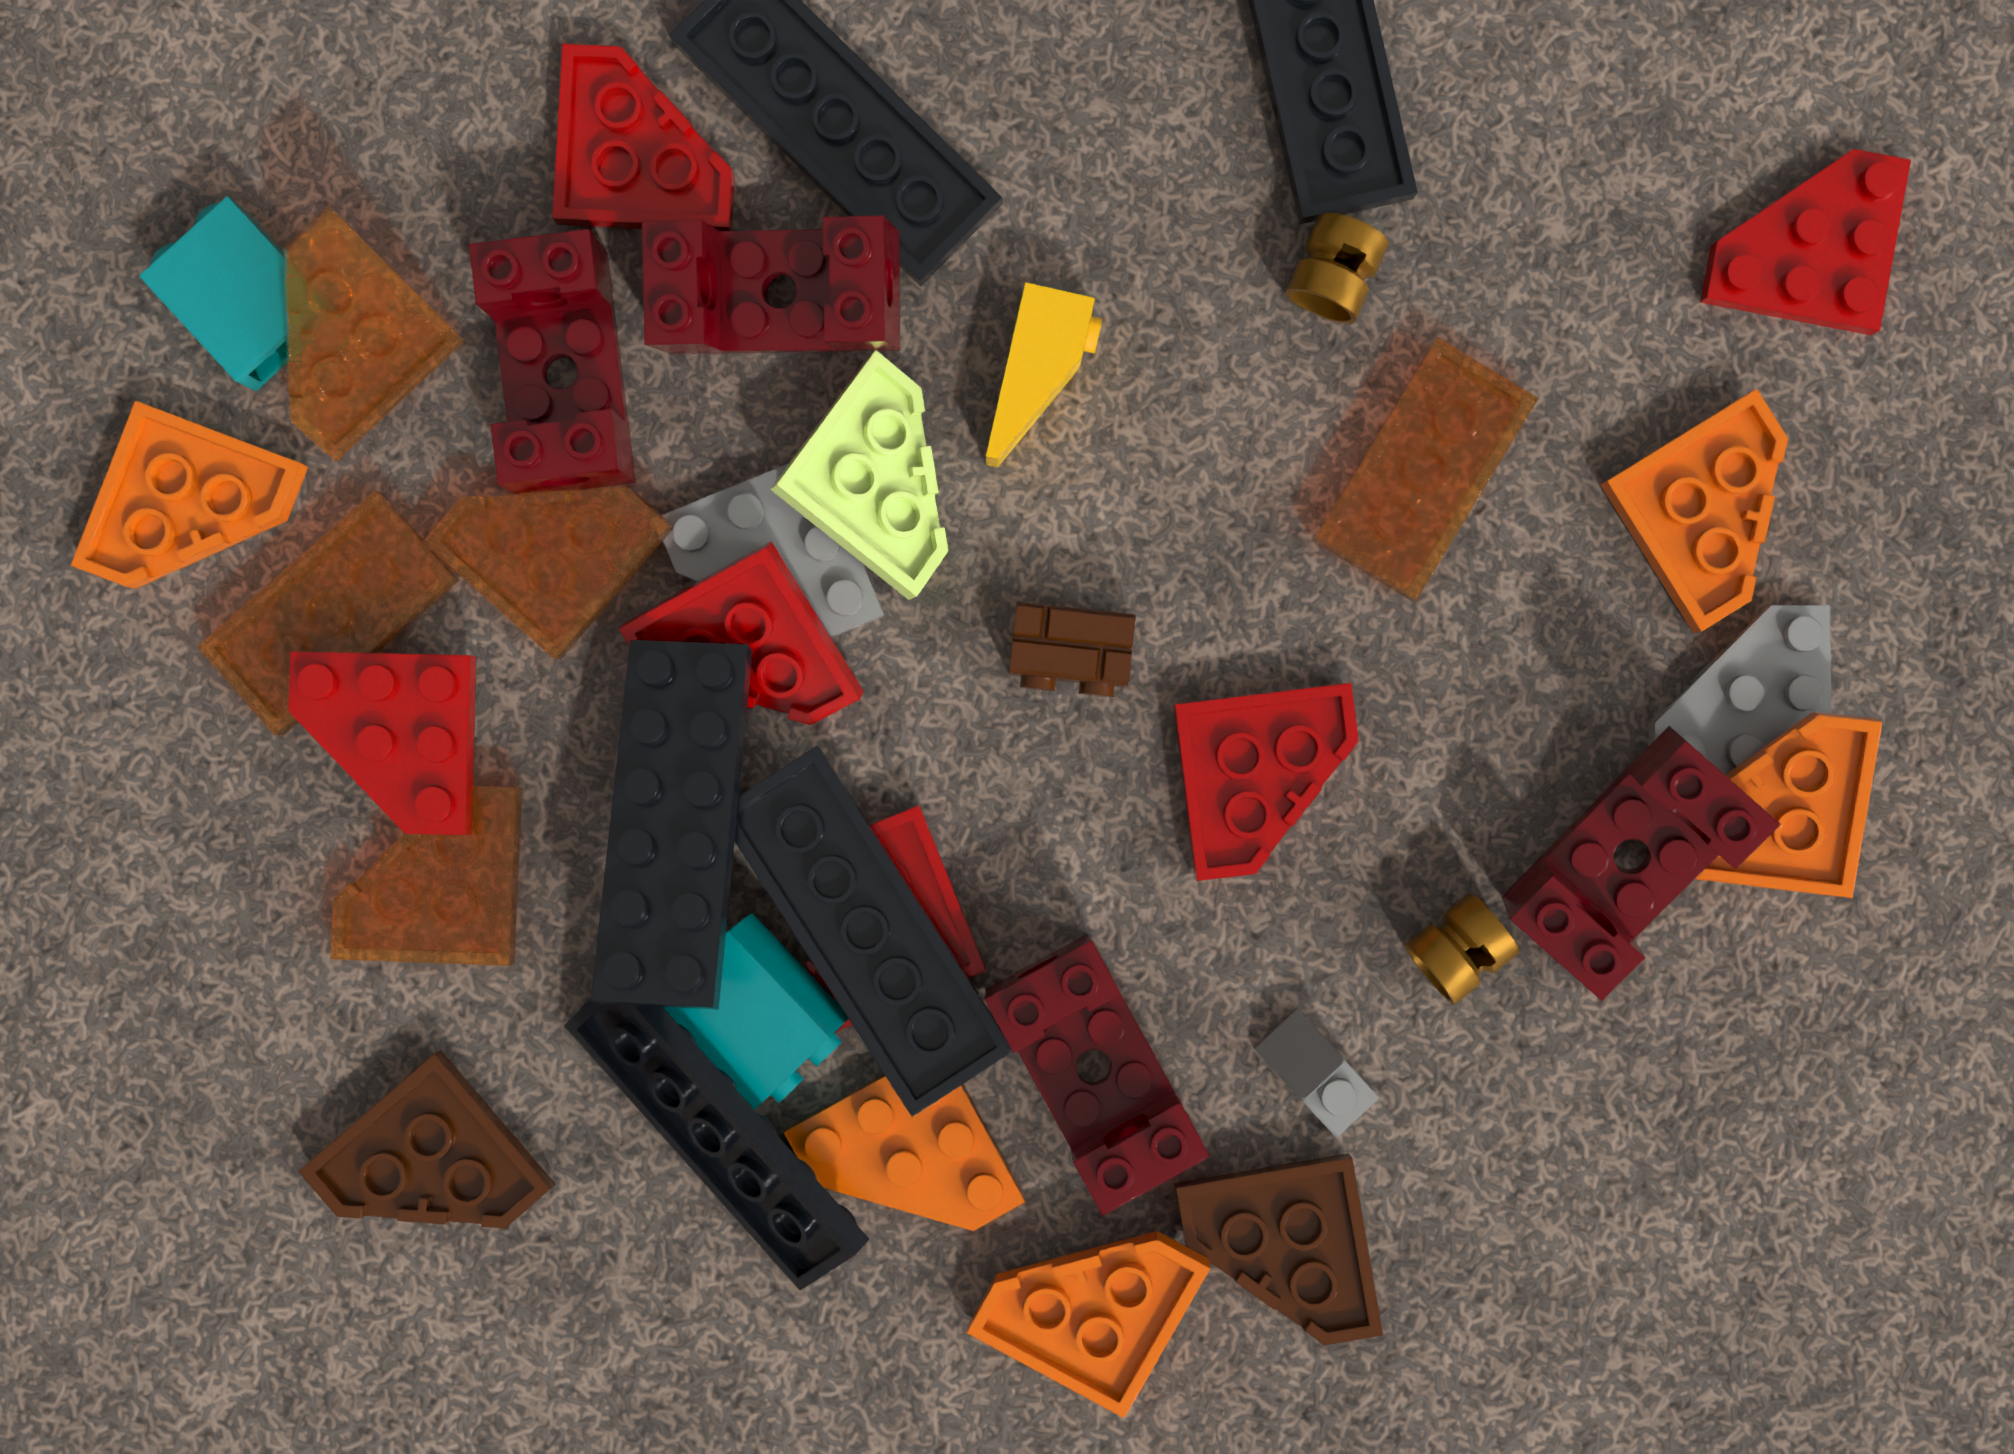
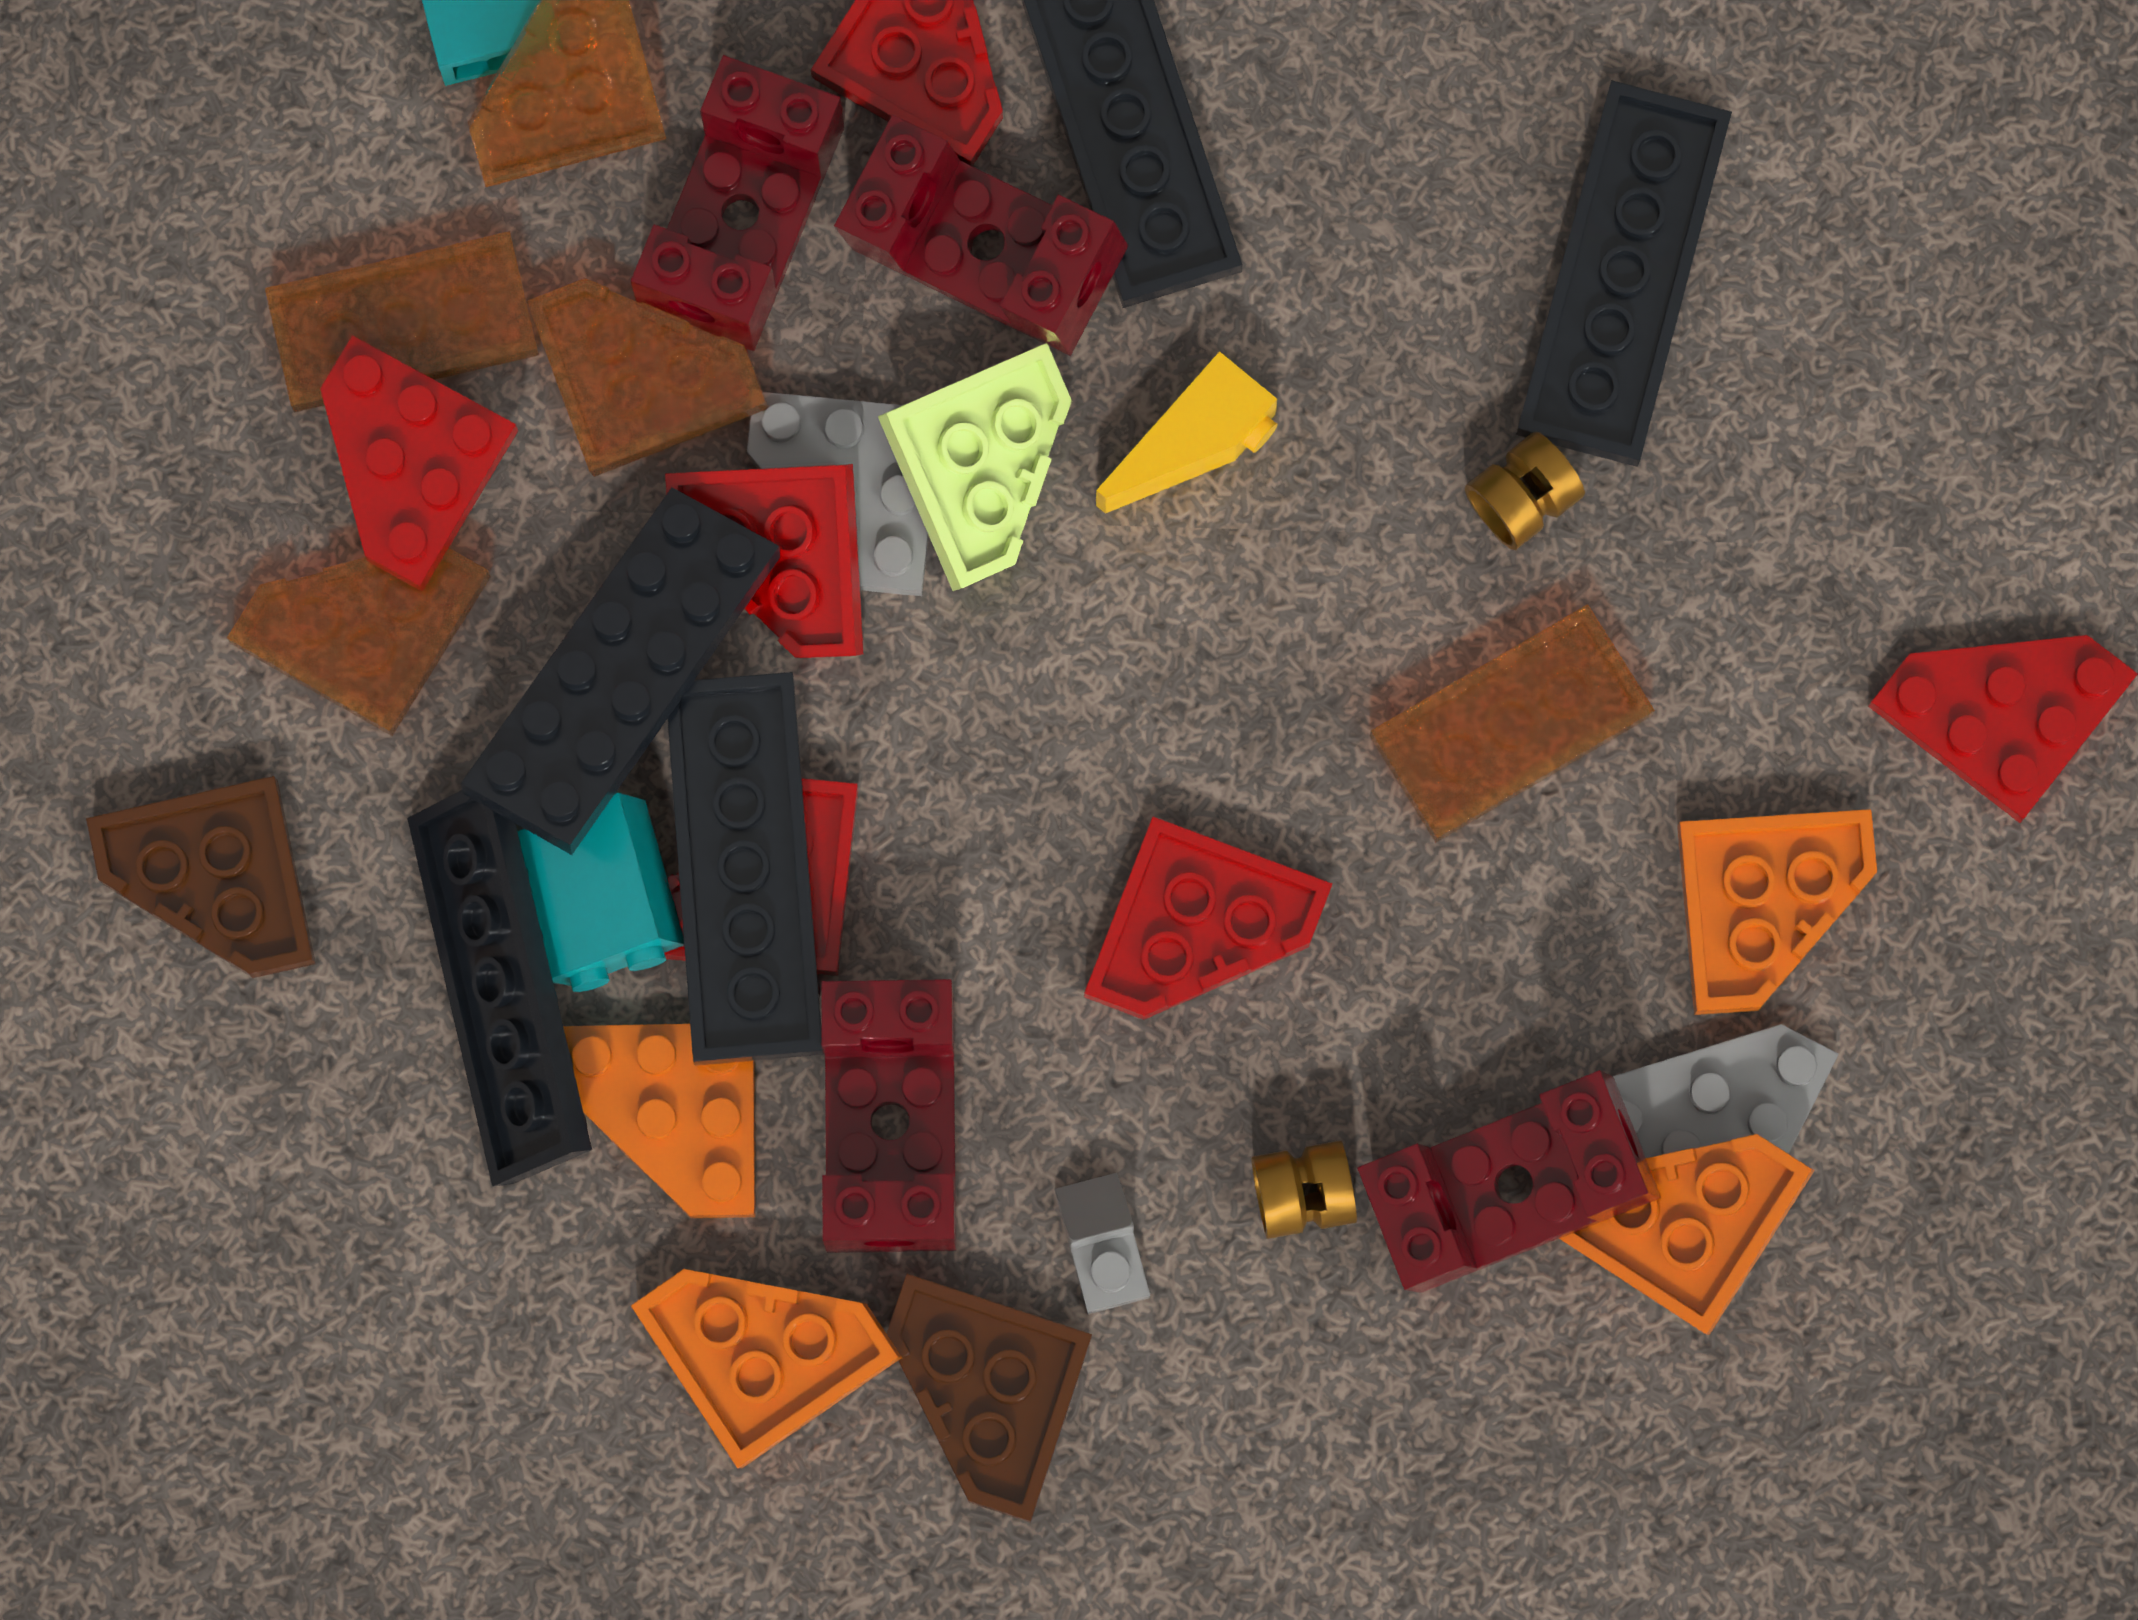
camera: 30 degrees right, 10 degrees down
(180, 498) = (325, 146): orange plate -> none
(1072, 647) = (1082, 713): reddish brown brick -> none

